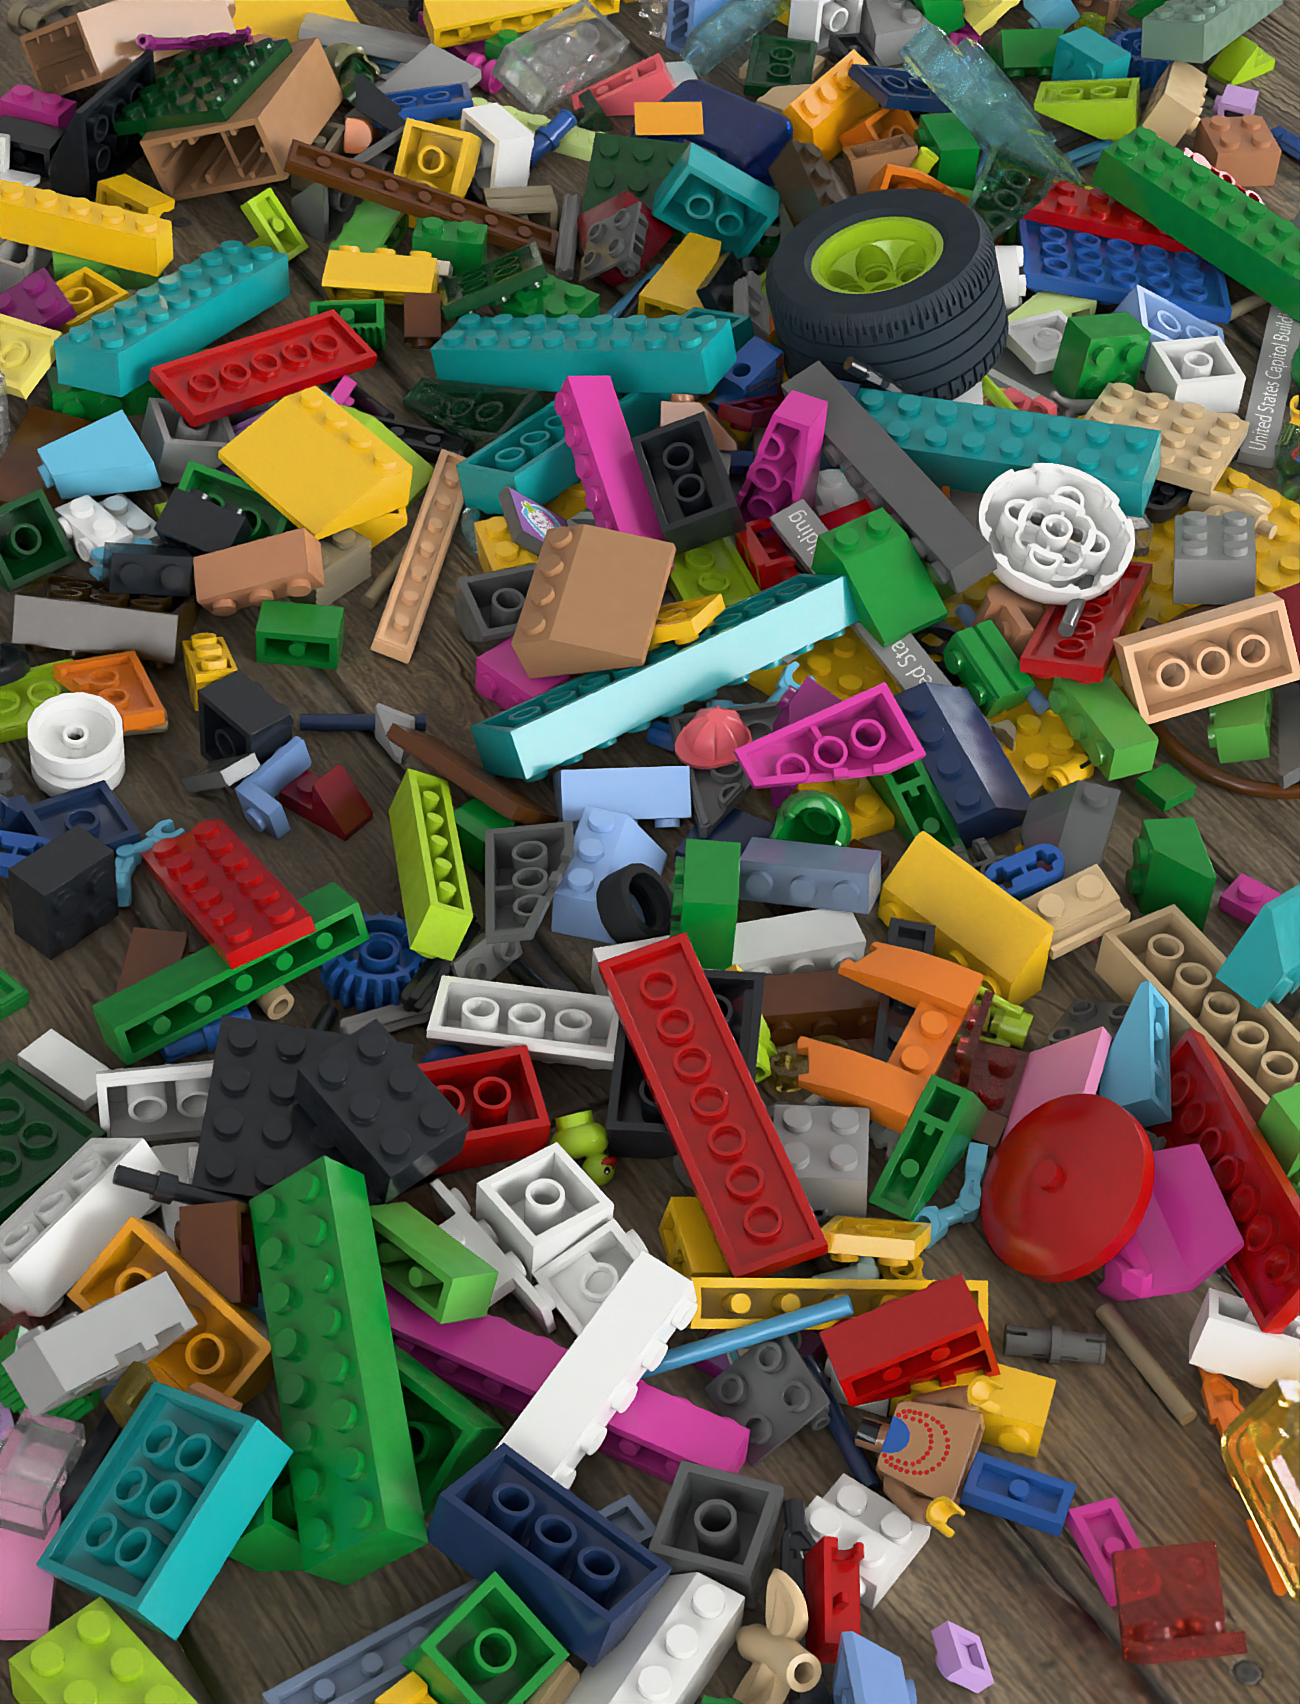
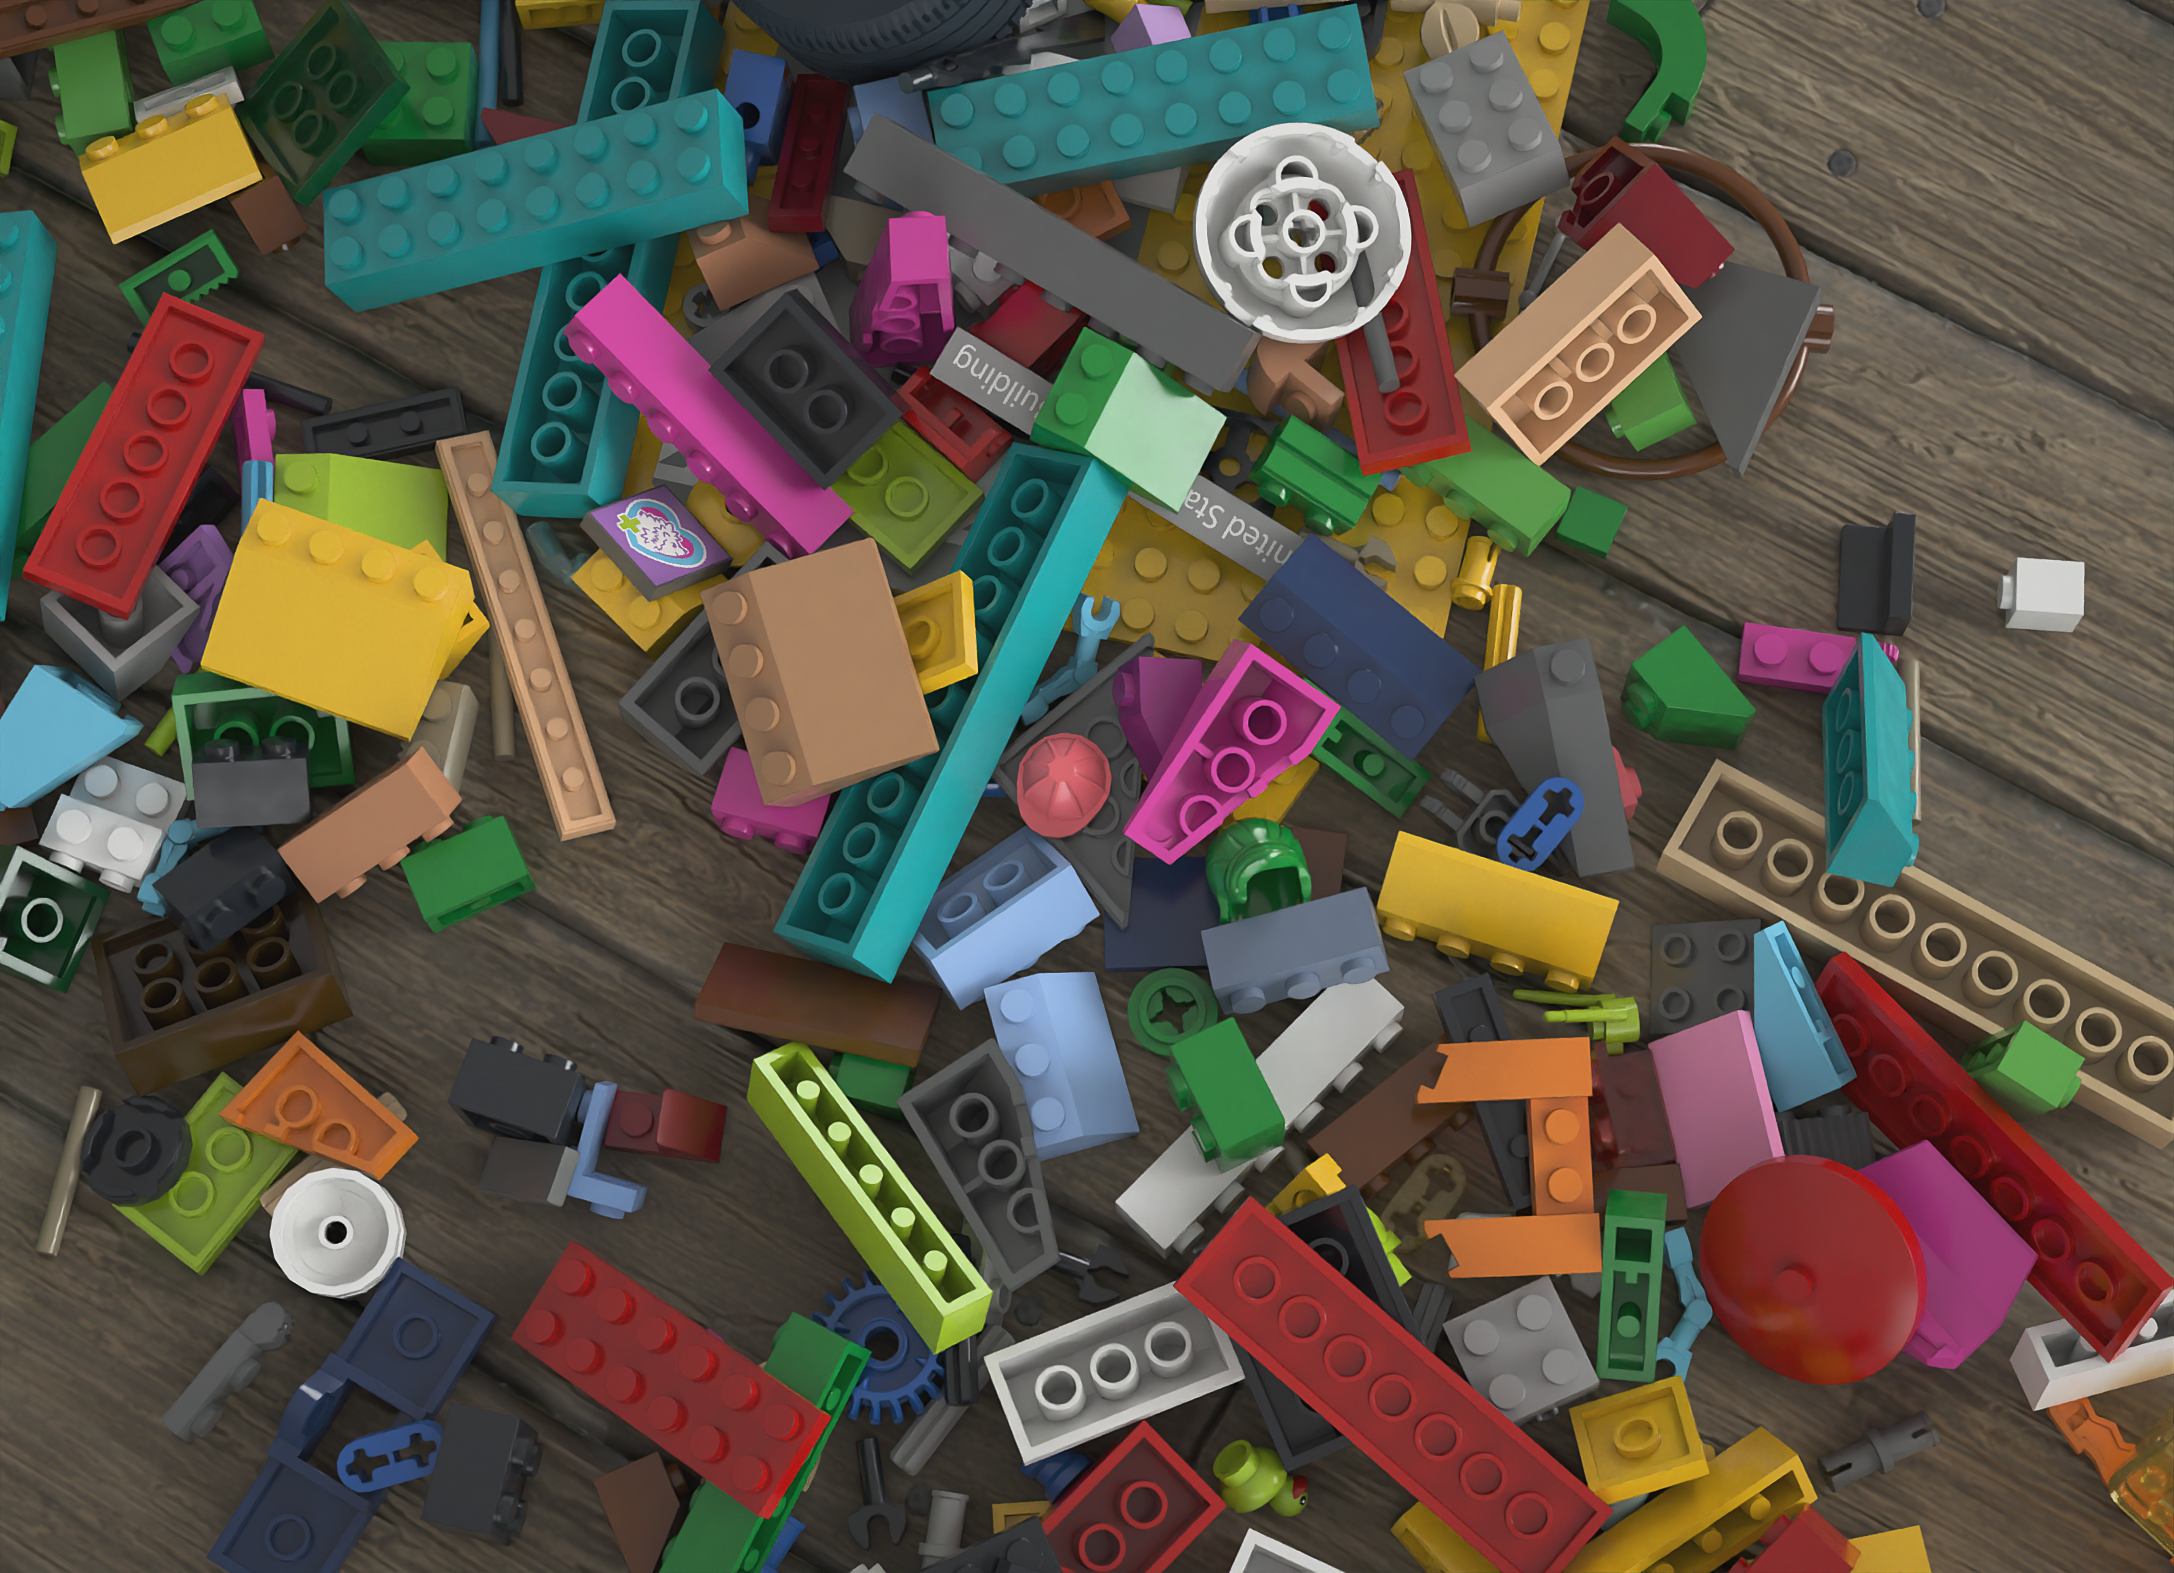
camera: 20 degrees left, 30 degrees up
(129, 857) = (497, 1345): medium azure piece -> none
(206, 662) = (407, 1009): yellow slope -> none
(321, 722) = (625, 965): dark blue bar -> none
(383, 720) = (678, 969): light grey slope -> none
(473, 409) = (439, 350): clear green wedge -> none
(617, 910) = (1099, 1117): black tyre -> none
(1078, 909) = (1618, 841): tan plate -> none
(1146, 1364) = (1978, 1415): dark tan bar -> none

